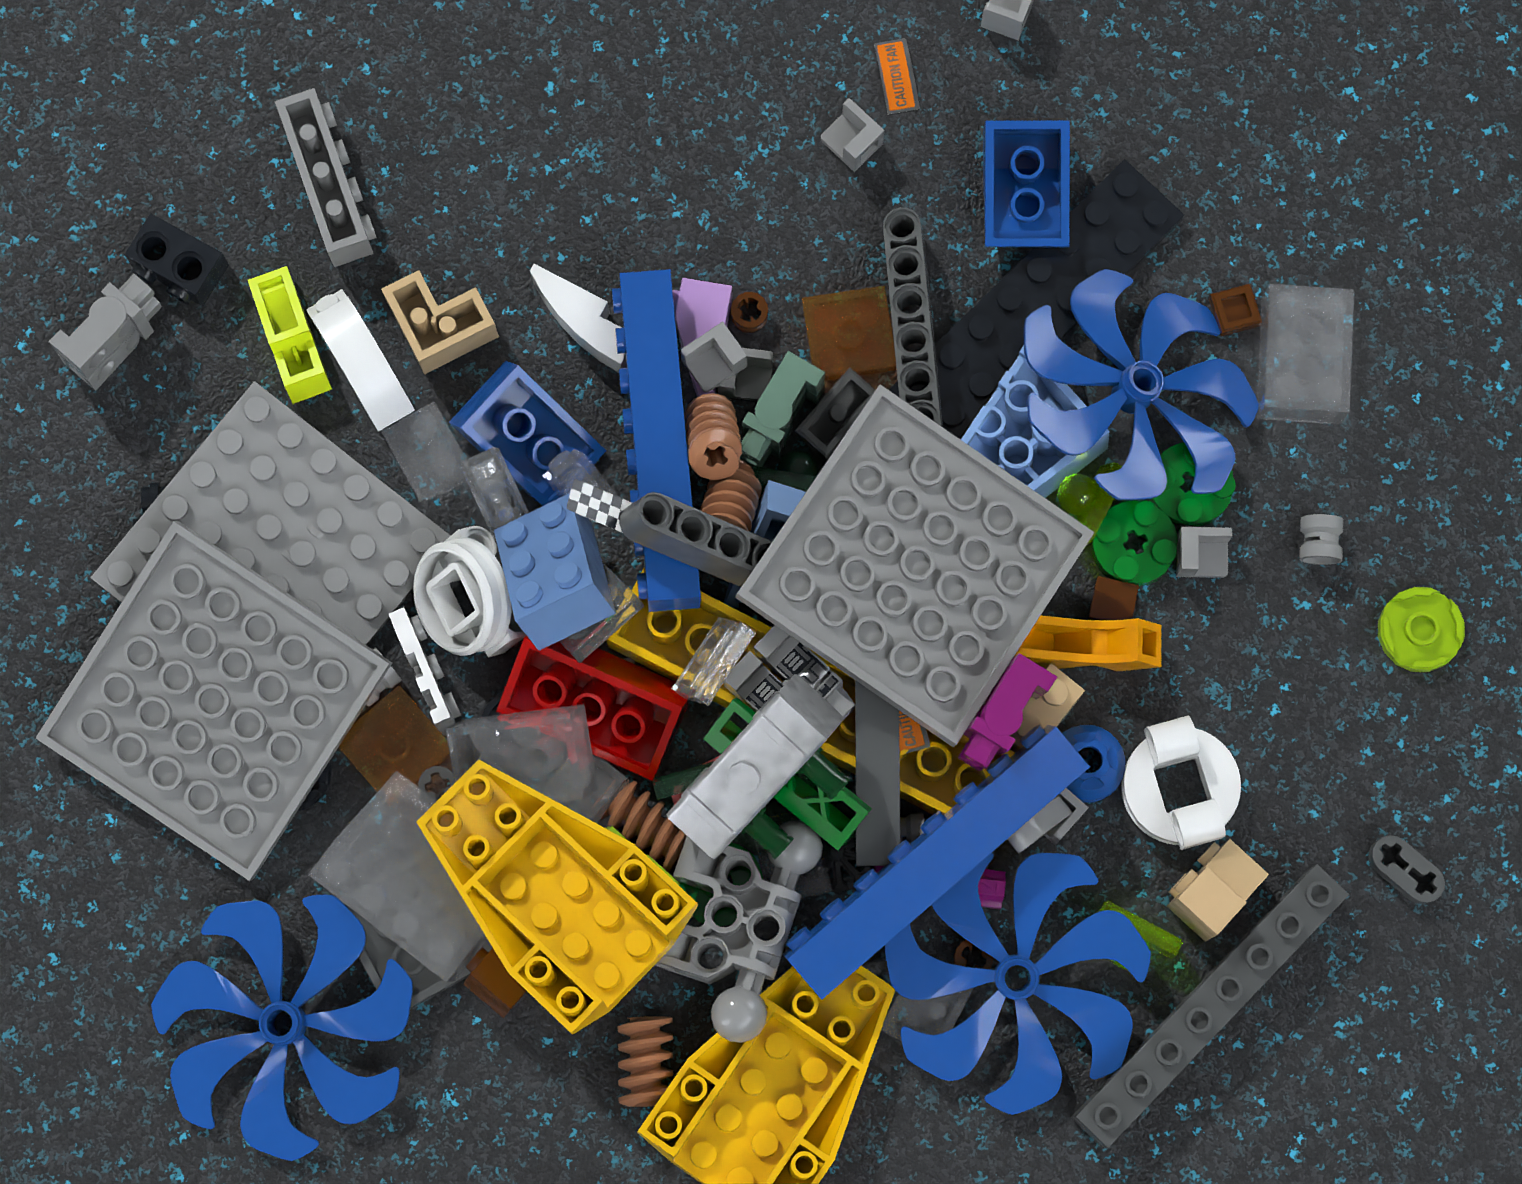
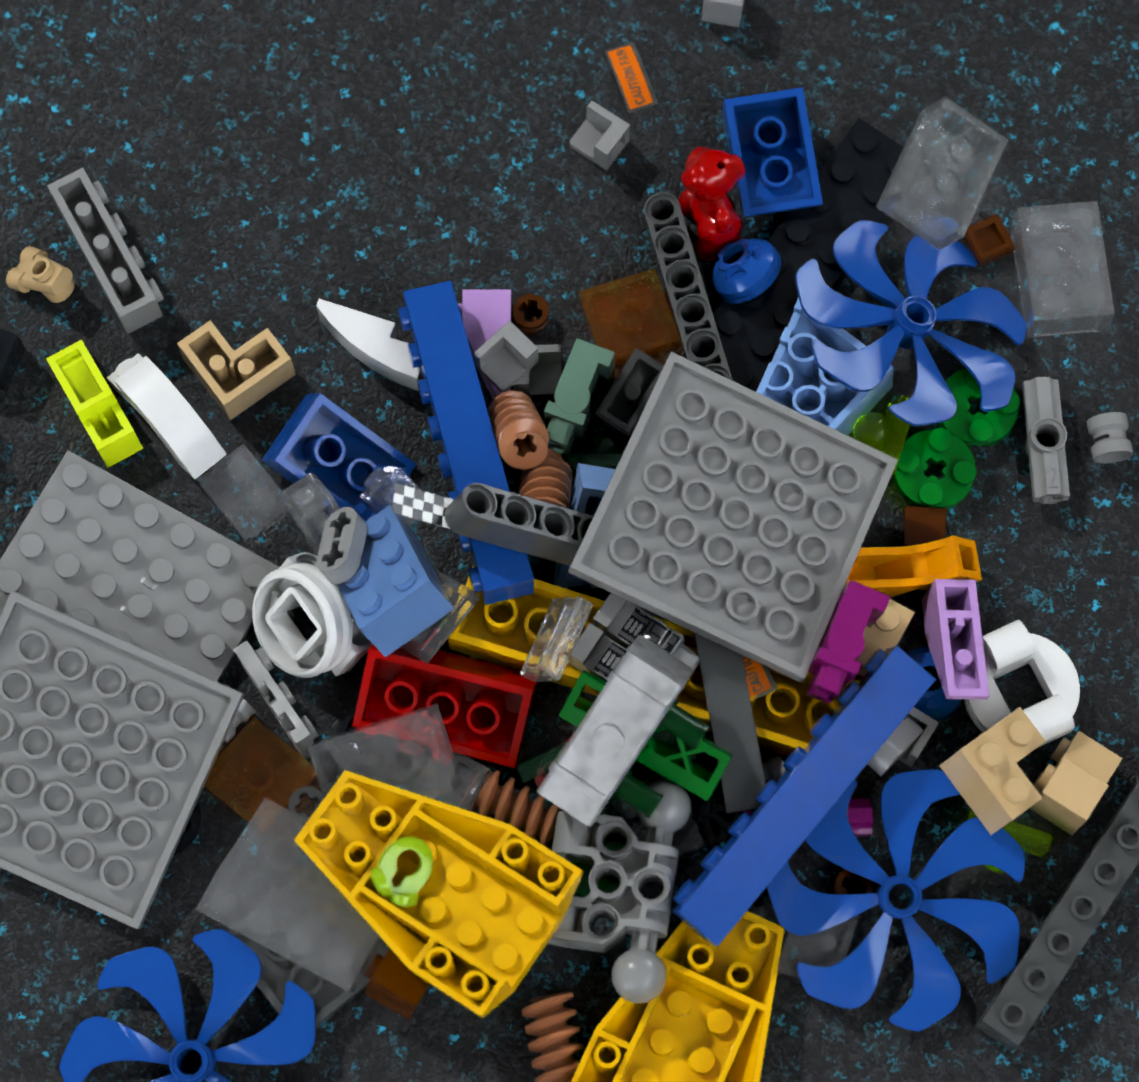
camera: 10 degrees left, 5 degrees down
(255, 191) = (42, 275): none -> tan plate
(513, 529) = (342, 545): none -> light grey beam
(518, 895) = (406, 892): none -> lime piece
(949, 220) = (707, 180): none -> red animal
(980, 309) = (749, 274): none -> blue piece
(1122, 724) = (956, 638): none -> lavender slope
(1128, 868) = (989, 773): none -> tan brick
(1198, 234) = (942, 173): none -> clear brick
(1202, 552) = (1000, 467): light grey panel -> none
(1257, 506) = (1046, 464): none -> light grey piece

